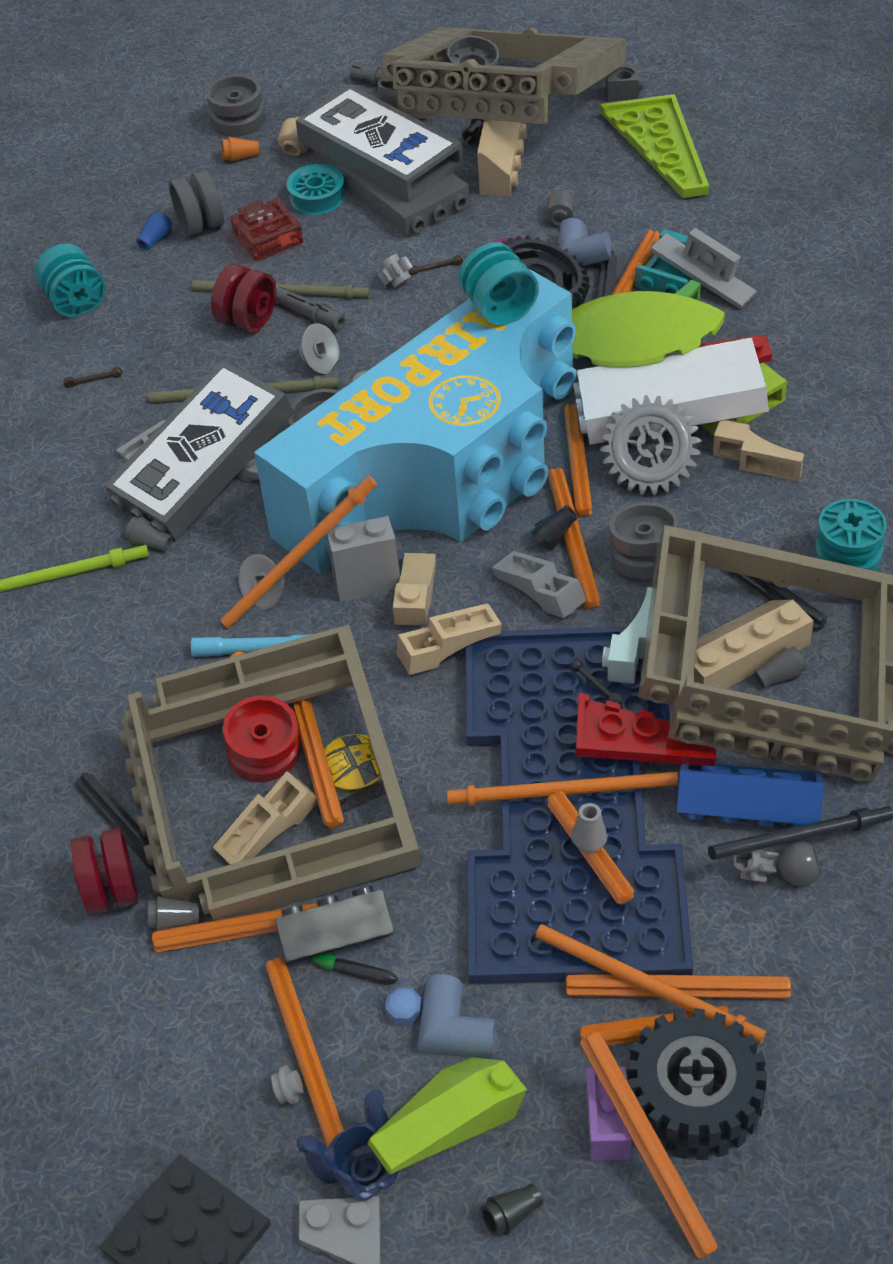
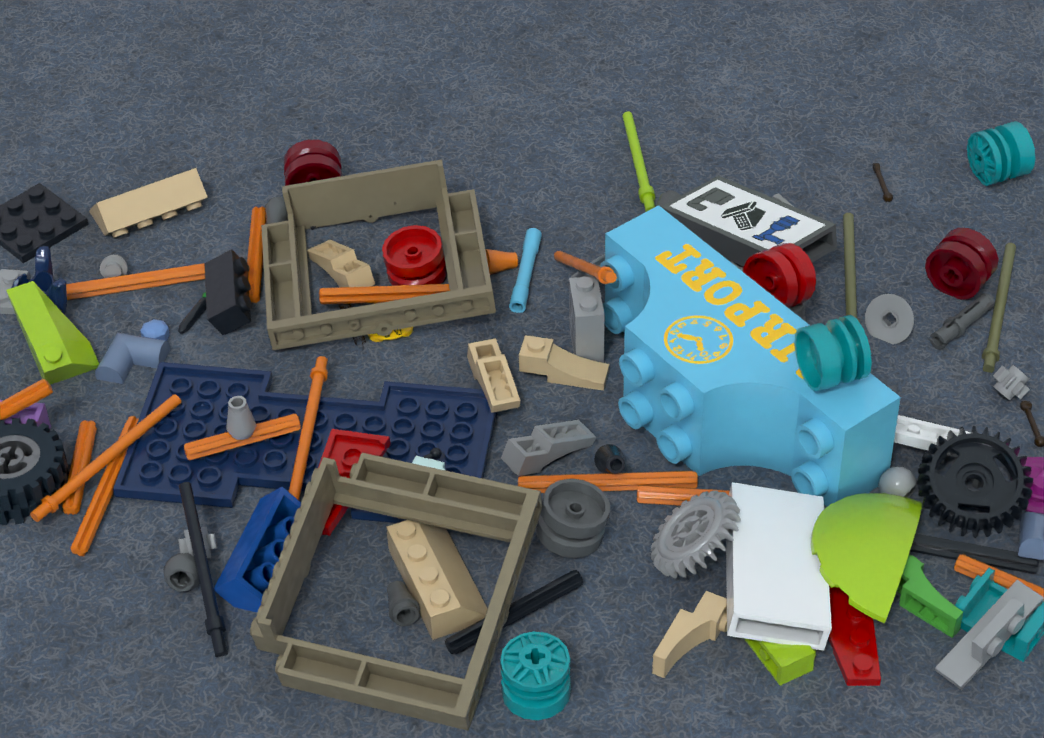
camera: 95 degrees right, 5 degrees down
(147, 1078) = (149, 202): none -> tan slope
(312, 380) = (784, 273): none -> red wheel

